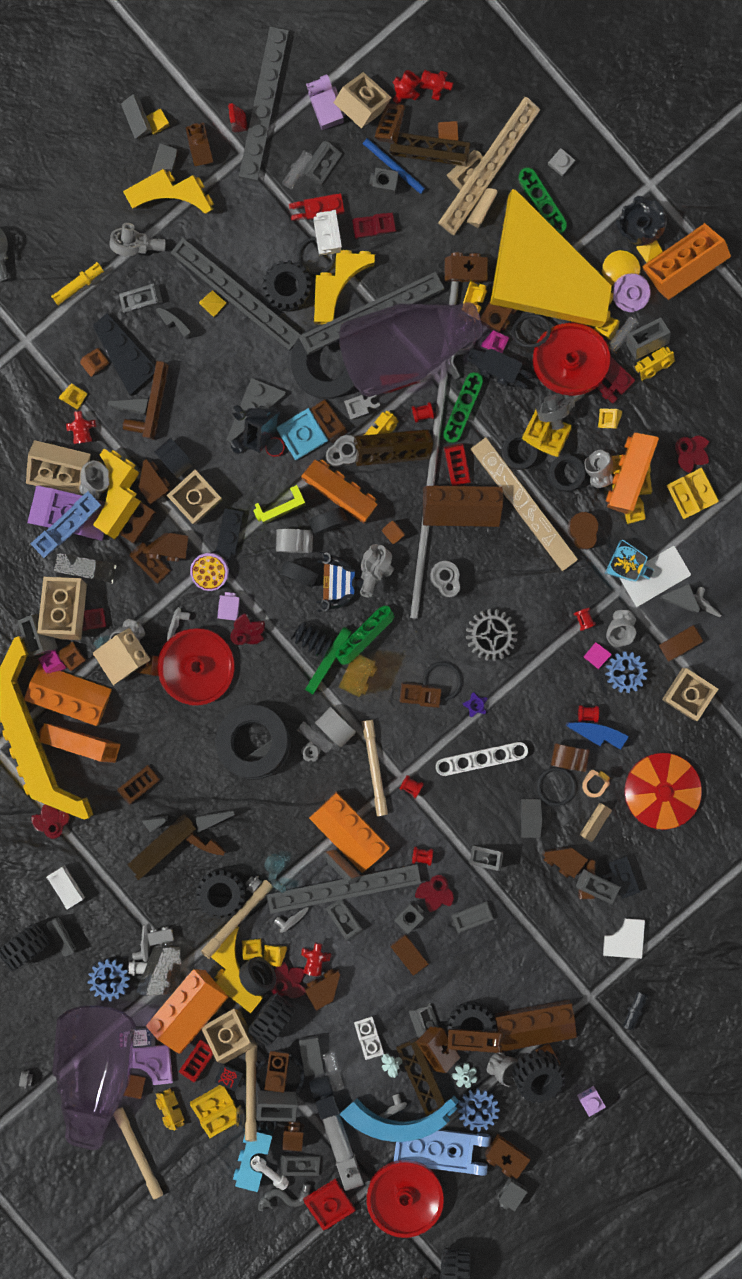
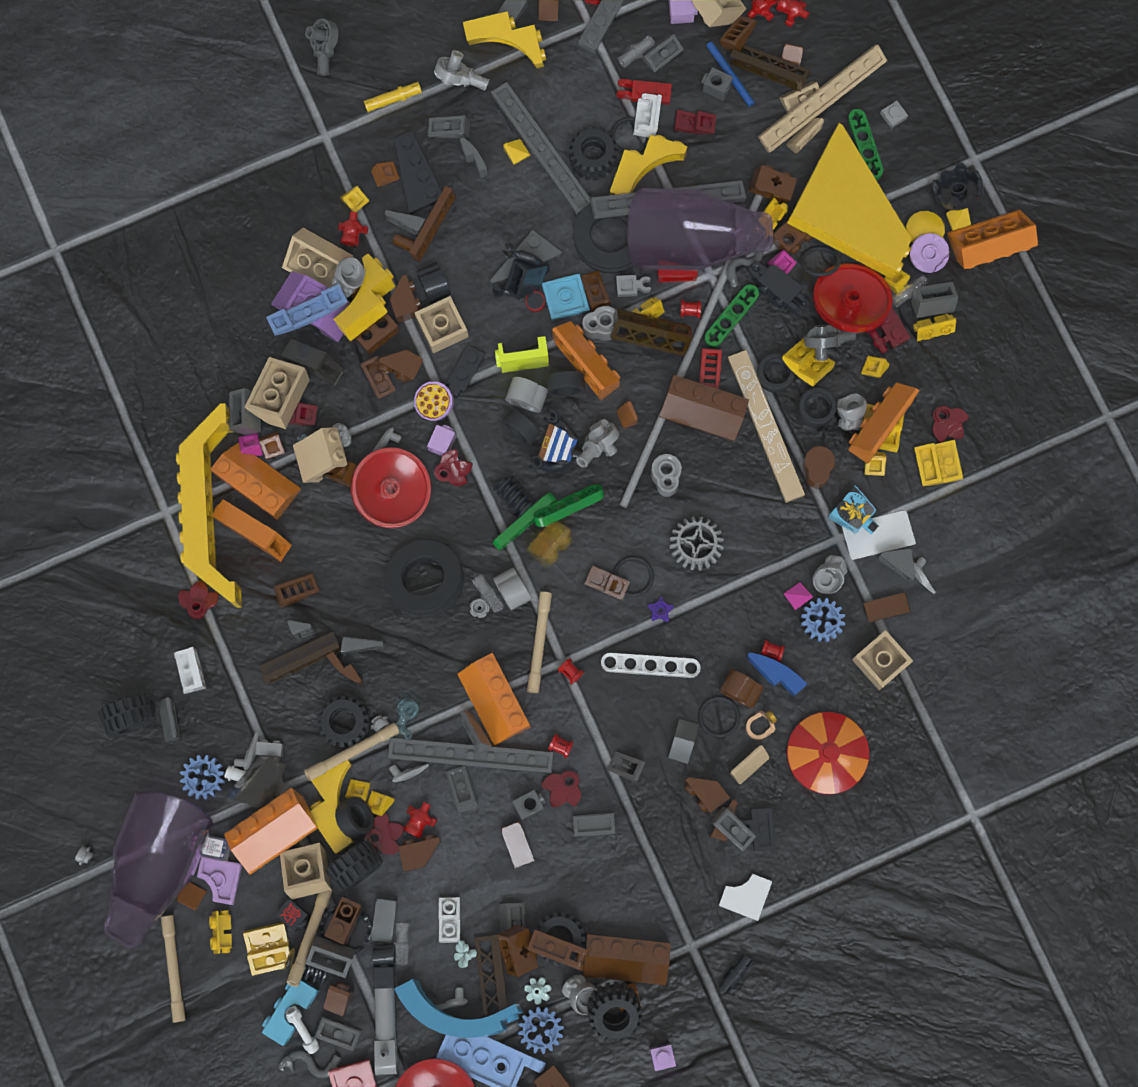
camera: 20 degrees right, 10 degrees down
(188, 1075) = (260, 884): red slope -> none
(584, 619) = (795, 555): red bush -> none

